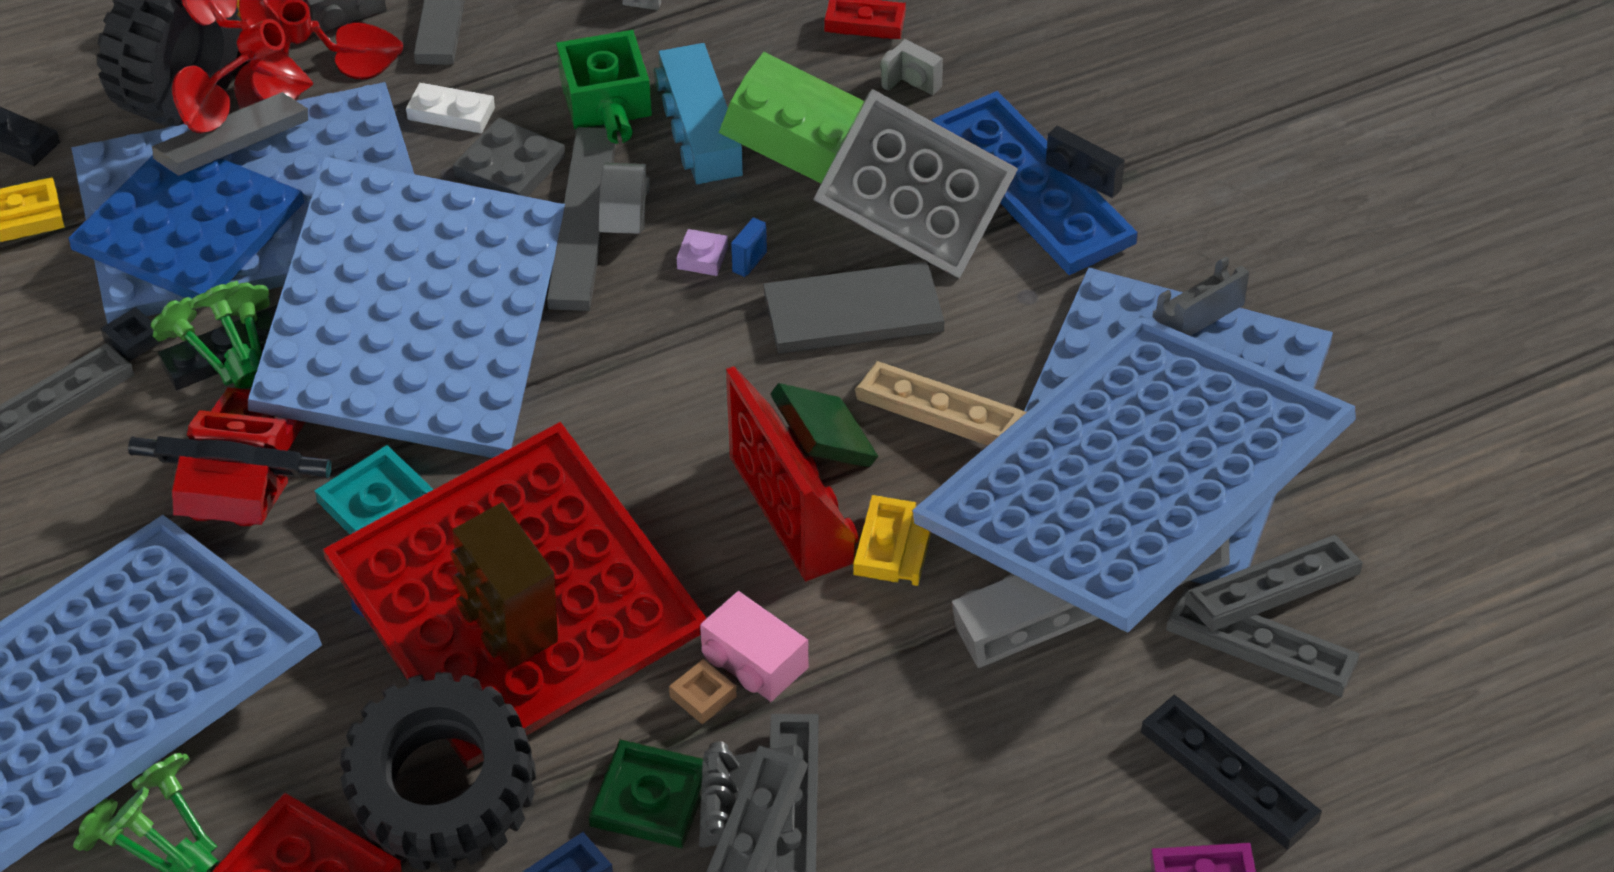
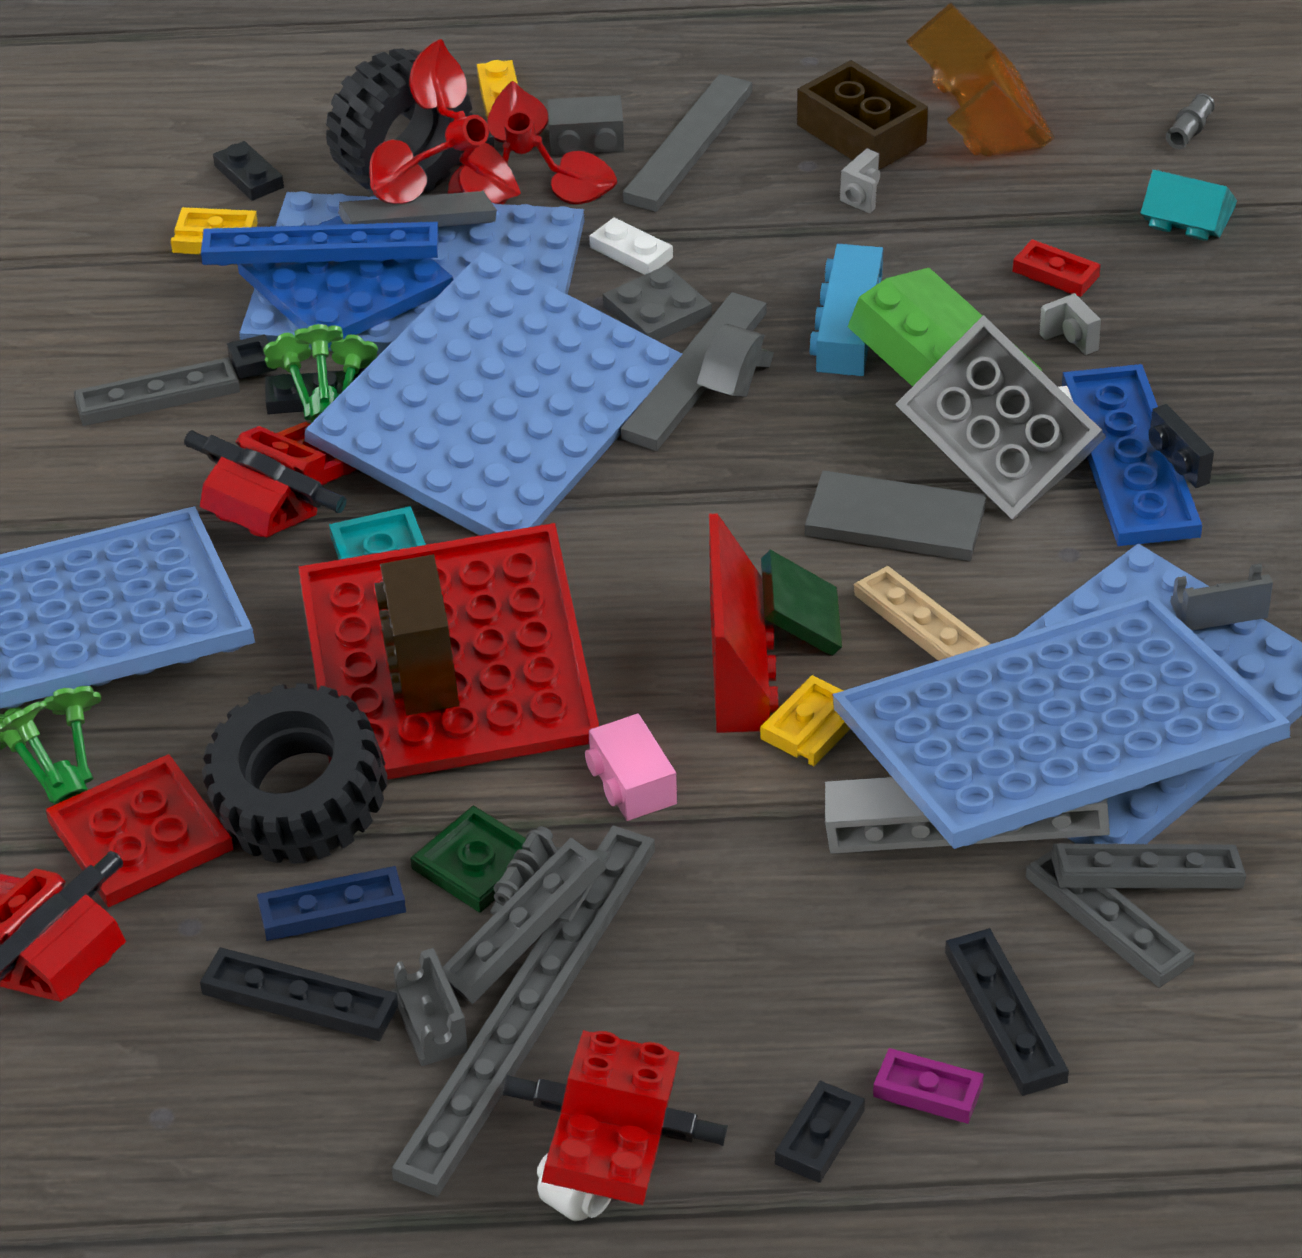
camera: 25 degrees right, 5 degrees down
(152, 196) = (320, 243): none -> blue plate
(605, 82) = (774, 258): green brick -> none
(702, 252) = (785, 429): lavender plate -> none
(702, 691) = (566, 789): medium nougat plate -> none
(749, 247) = (826, 435): blue tile -> none

